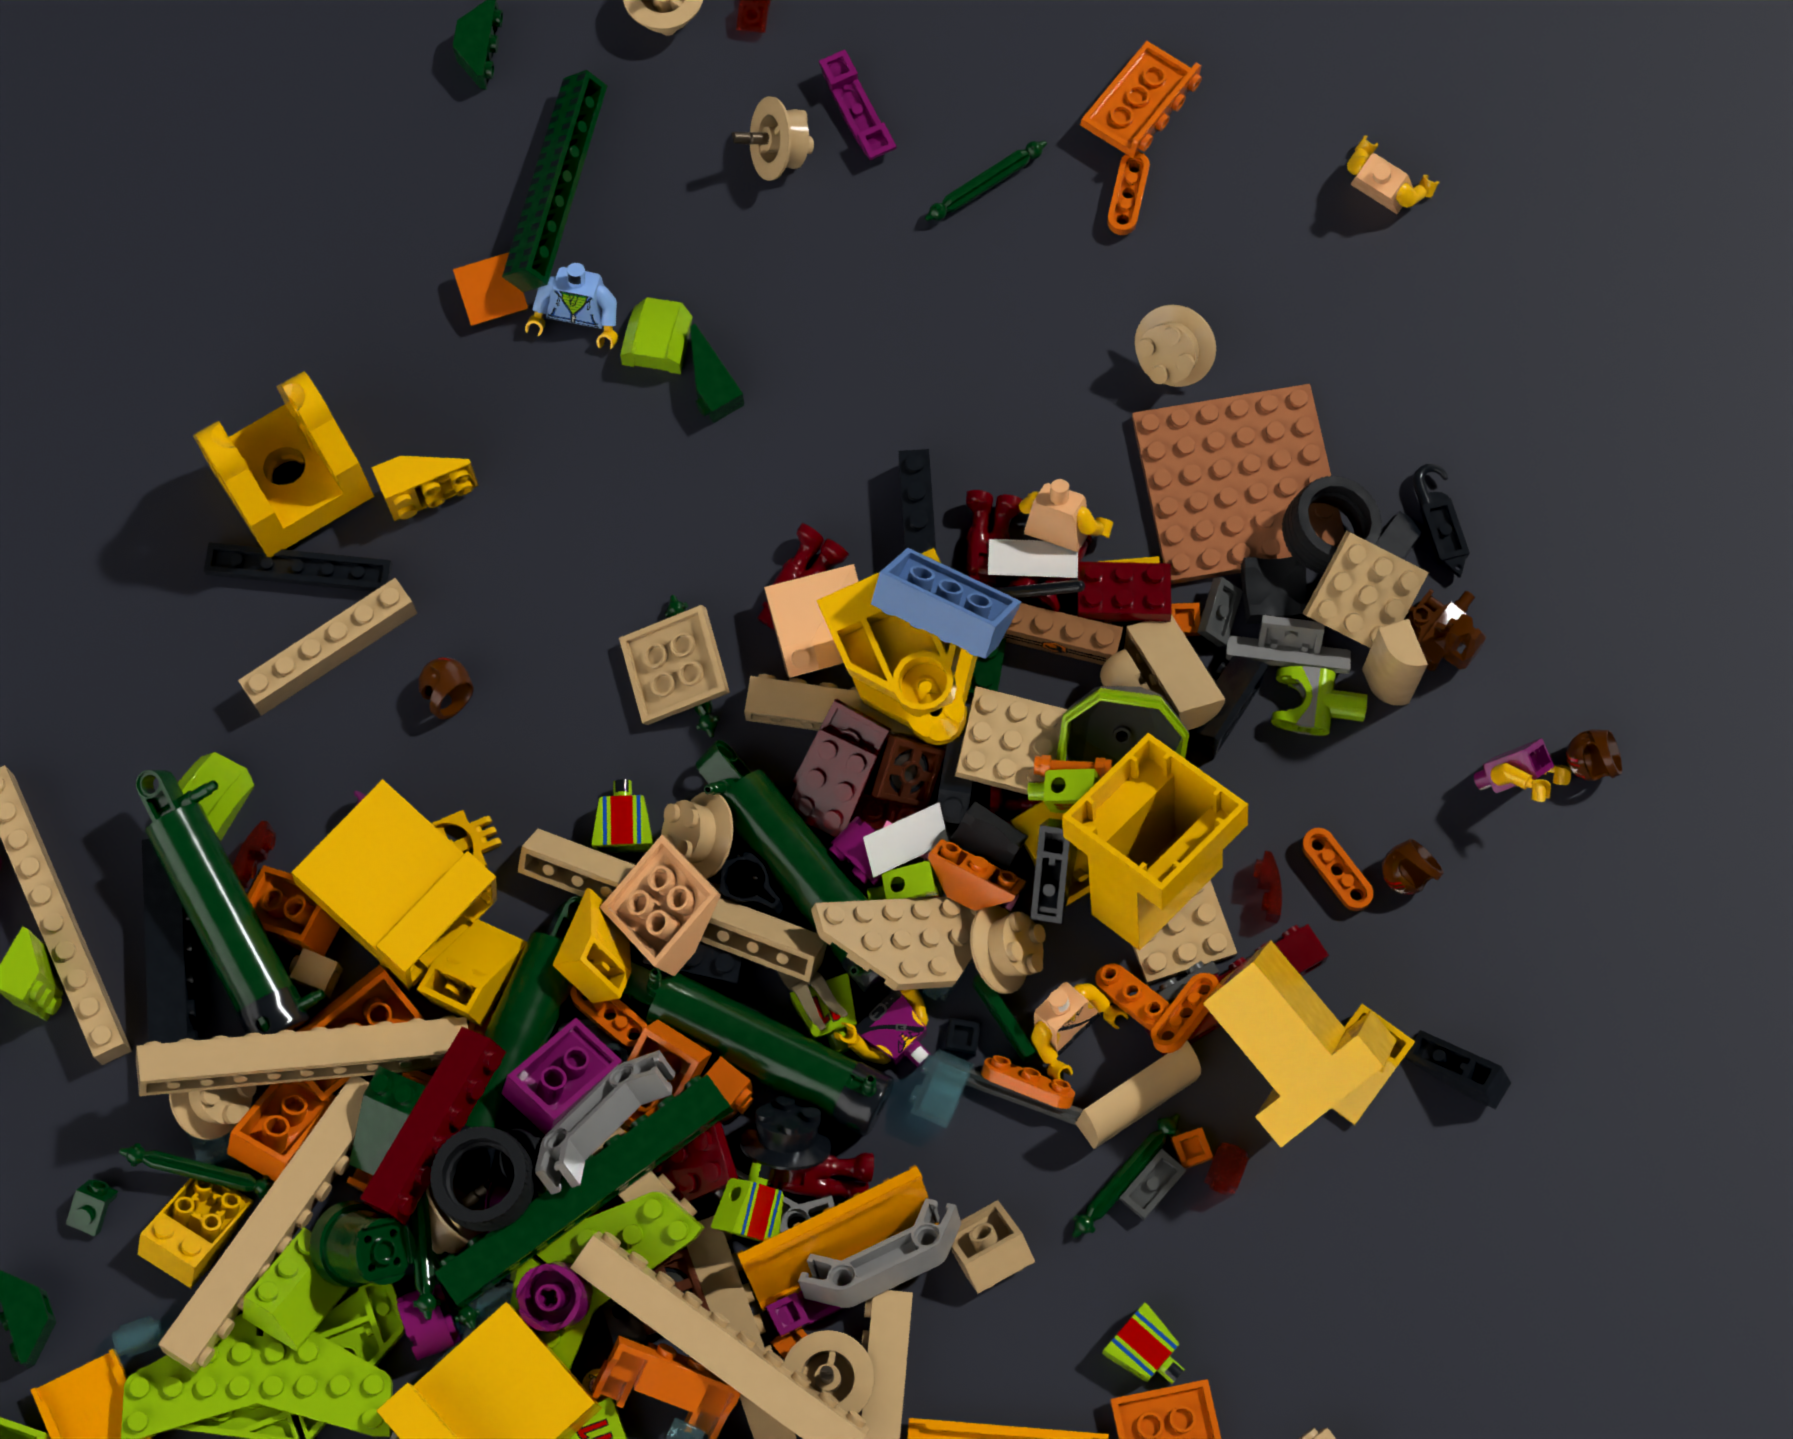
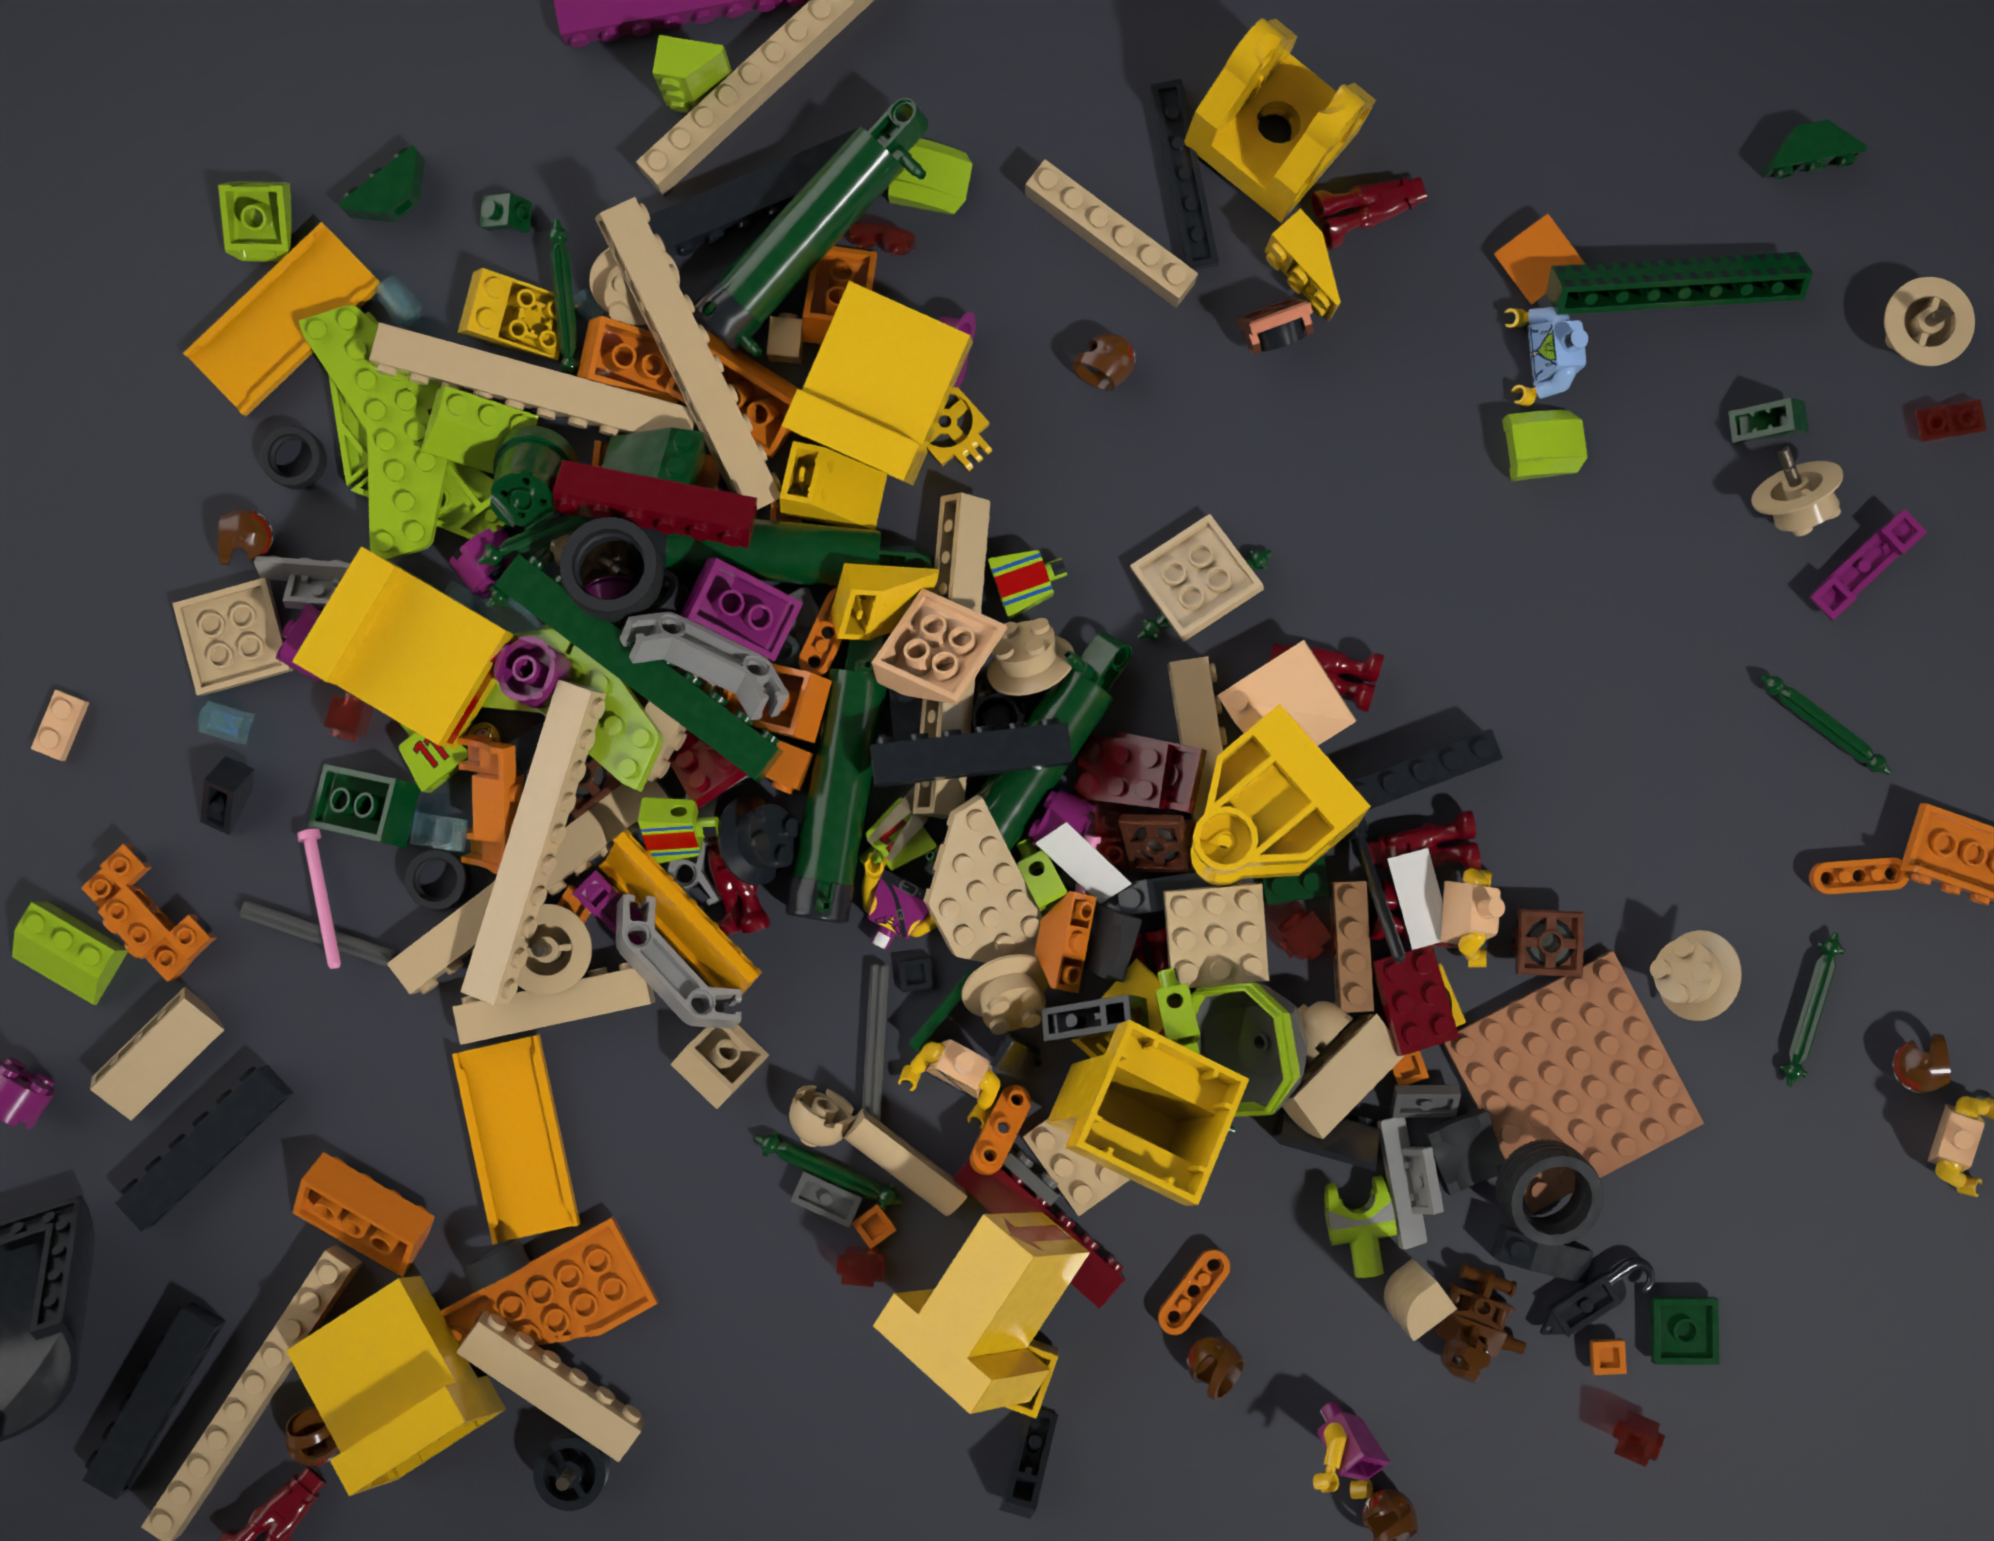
camera: 75 degrees right, 15 degrees up
(389, 410) = (1374, 202): none -> dark red piece
(467, 526) = (1276, 325): none -> copper piece
(703, 146) = (1769, 421): none -> dark green arch
(715, 387) = (1507, 518): dark green slope -> none
(770, 905) = (970, 754): none -> black brick
(941, 1087) = (854, 971): clear light blue brick -> none
(944, 602) = (1311, 837): medium blue slope -> none
(1028, 1082) = (886, 1051): orange plate -> none
(1035, 671) = (1303, 935): none -> clear red brick
(1045, 763) = (1210, 1035): orange bar -> none
(1067, 960) = (1015, 1057): none -> black slope
(1073, 1164) = (820, 1117): none -> tan cylinder
(1107, 463) = (1546, 942): none -> copper piece
(1145, 1347) = (669, 1235): torso -> none
(1188, 1002) = (1006, 1187): orange plate -> none
(1235, 265) = (1812, 1009): none -> dark green wheel
(1269, 879) = (1165, 1225): clear red slope -> none
(1314, 189) = (1922, 1070): none -> reddish brown helmet
(1364, 590) = (1486, 1247): tan plate -> none
(1491, 454) = (1684, 1330): none -> dark green plate
(1496, 525) = (1608, 1356): none -> orange plate
(1576, 520) = (1638, 1438): none -> clear red brick

